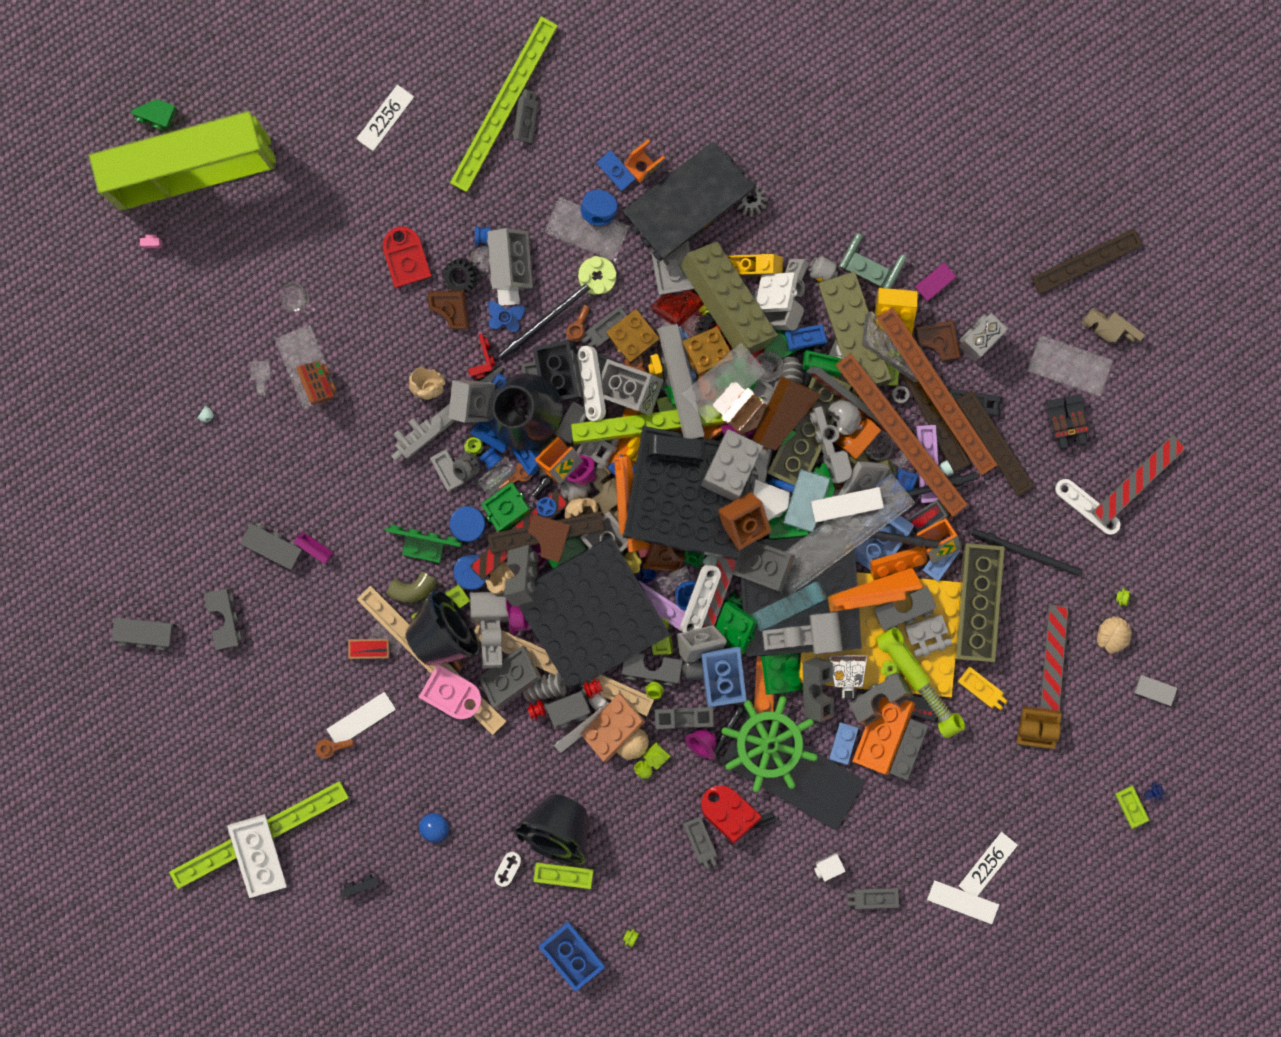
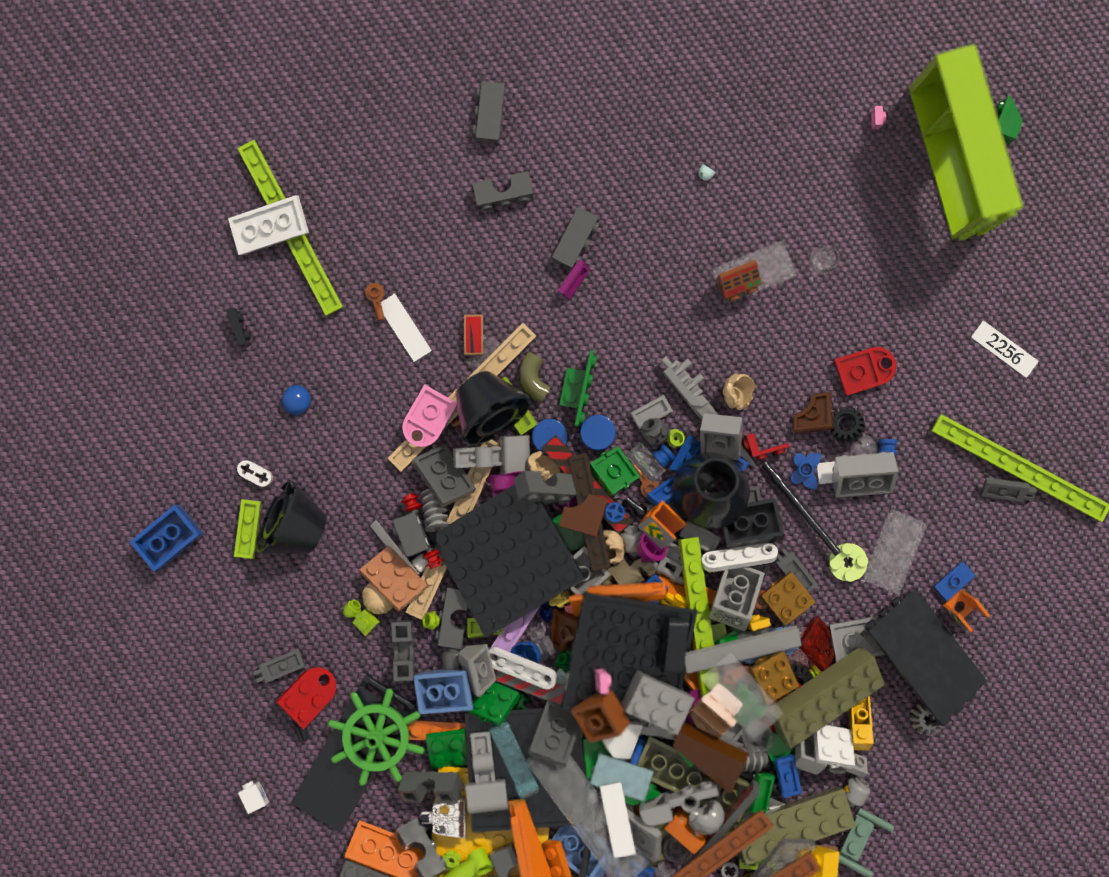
camera: 90 degrees right, 0 degrees up
(260, 372) = (748, 226): clear plate -> none
(575, 330) = (793, 541): dark orange plate -> none
(598, 207) = (917, 564): blue head -> none
(630, 937) = (185, 596): lime plate -> none
(702, 743) = (377, 669): magenta piece -> none
(710, 518) = (602, 680): none -> bright pink plate
(843, 743) = (377, 810): medium blue plate -> none
(874, 898) = (222, 841): dark grey hinge -> none

